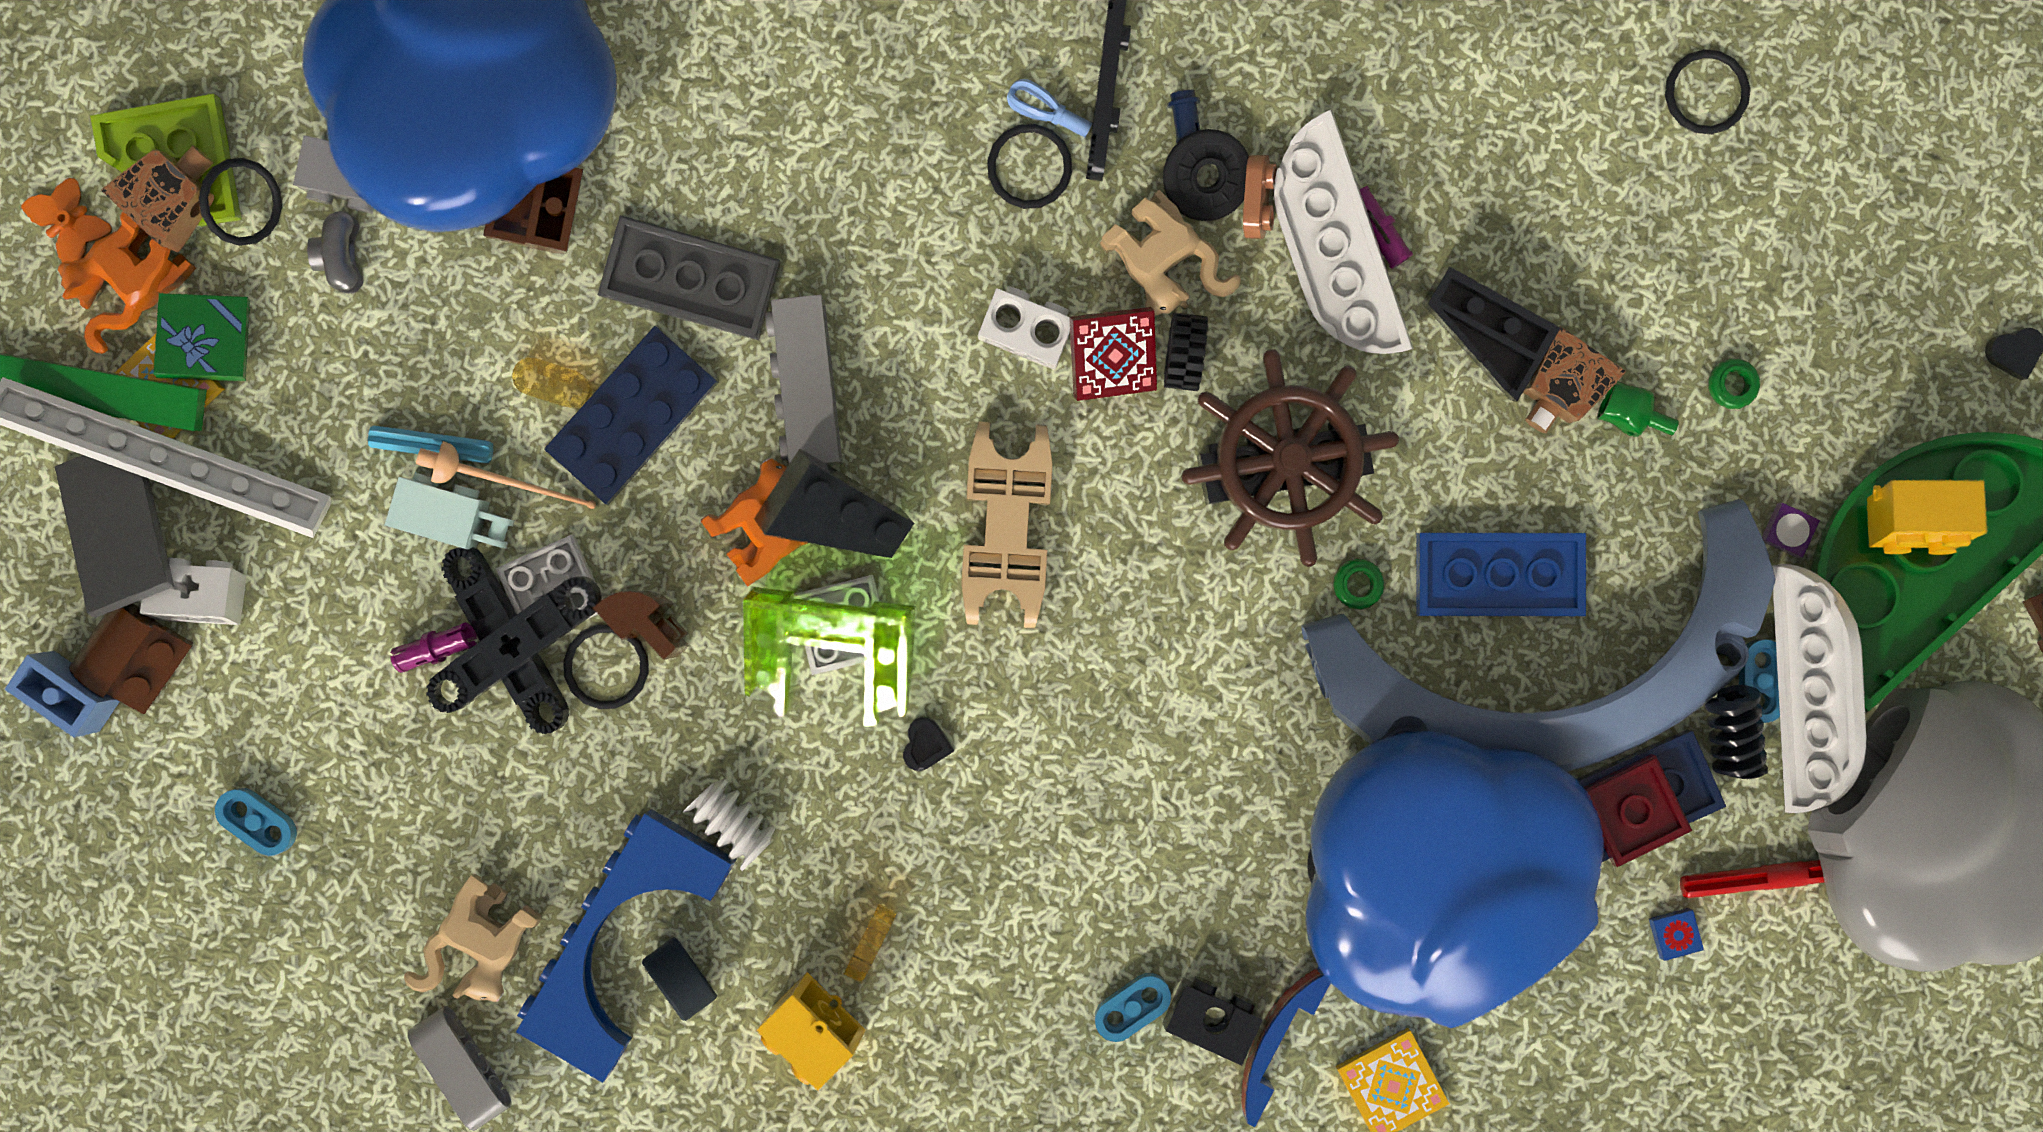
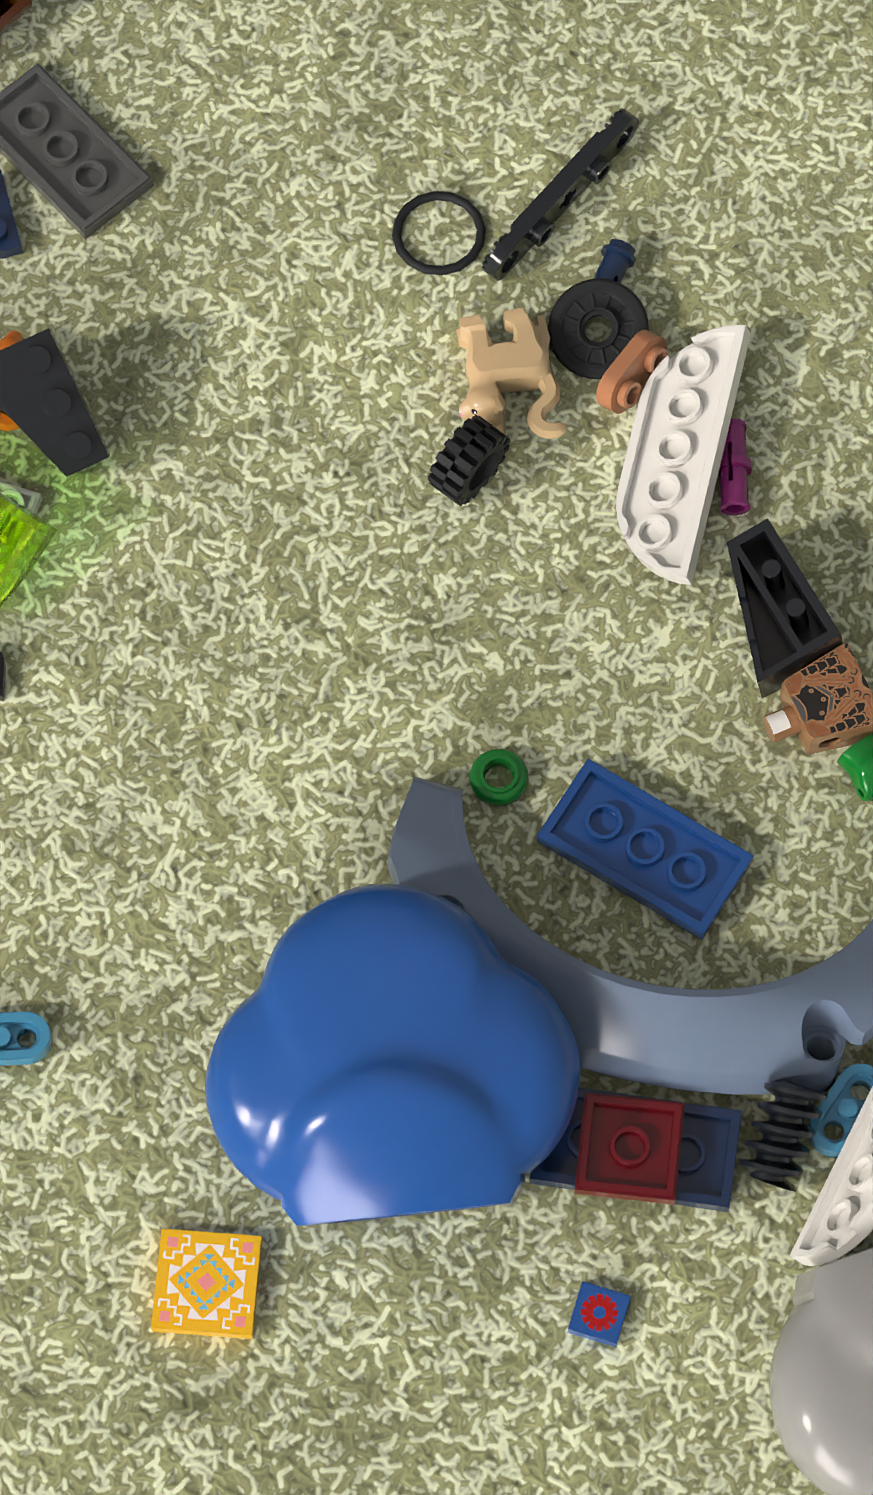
camera: 30 degrees right, 20 degrees down
(805, 378) = (105, 285): light grey brick -> none
(1006, 524) = (178, 546): tan piece -> none
(1022, 338) = (328, 365): white brick -> none
(1058, 116) = (497, 203): light blue piece -> none
(1113, 353) = (400, 425): dark red tile -> none
(1230, 1037) = (78, 1124): black brick -> none
(1256, 1089) = (63, 1193): blue slope -> none
(1290, 460) = (495, 623): reddish brown brick -> none
(1751, 879) = (707, 1302): red axle -> none

